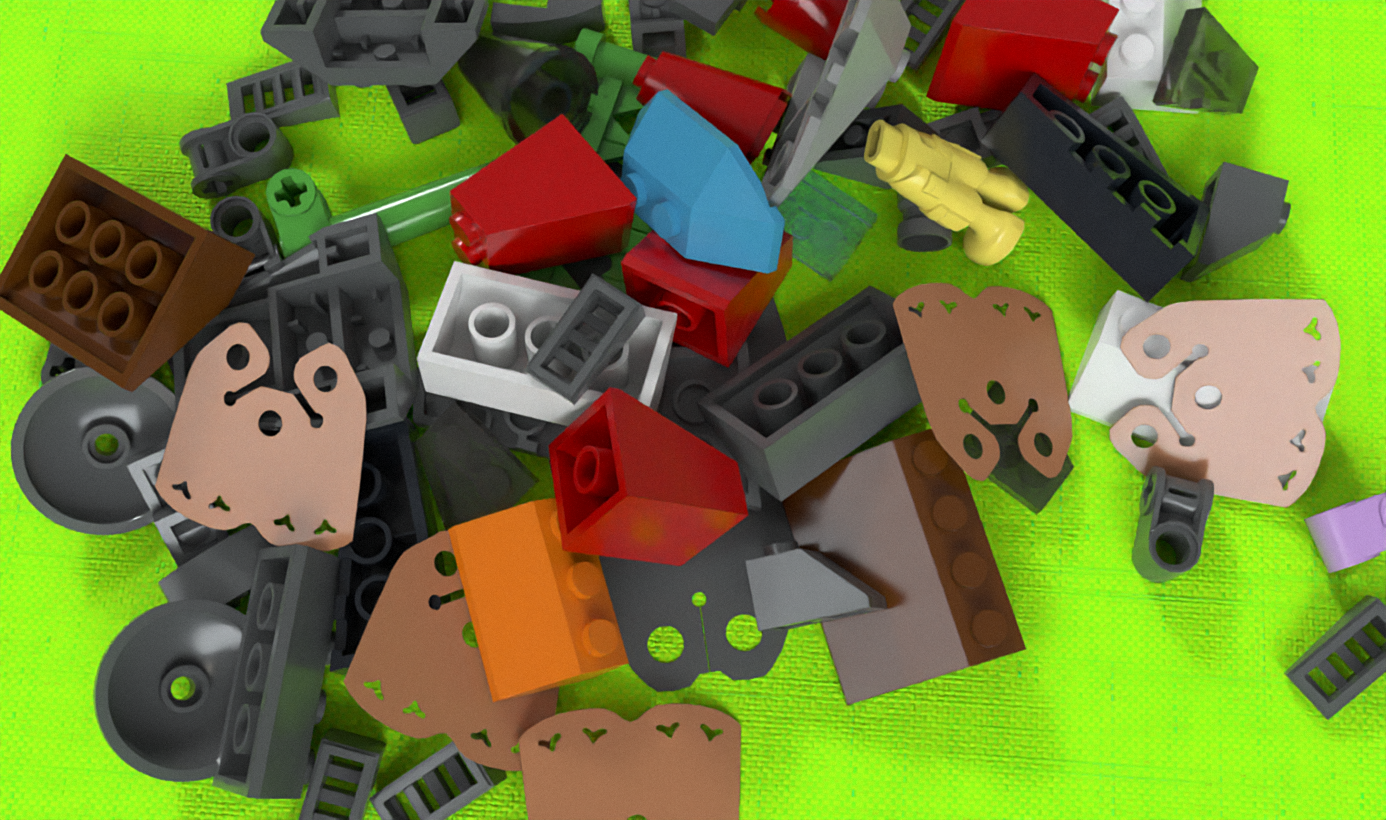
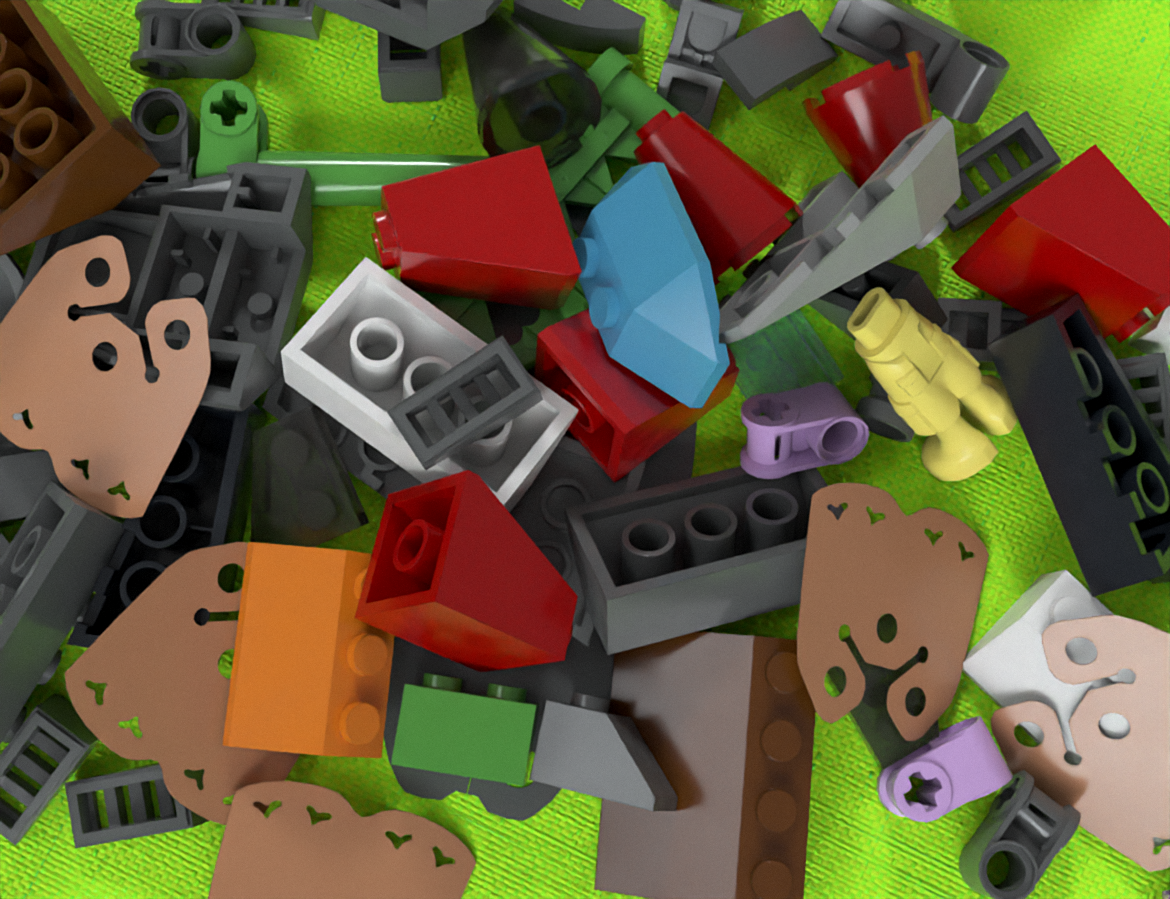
camera: 15 degrees right, 5 degrees up
(689, 615) = (466, 731): none -> bright green brick
(860, 268) = (803, 427): none -> lavender piece
(1094, 490) = (953, 769): none -> lavender piece

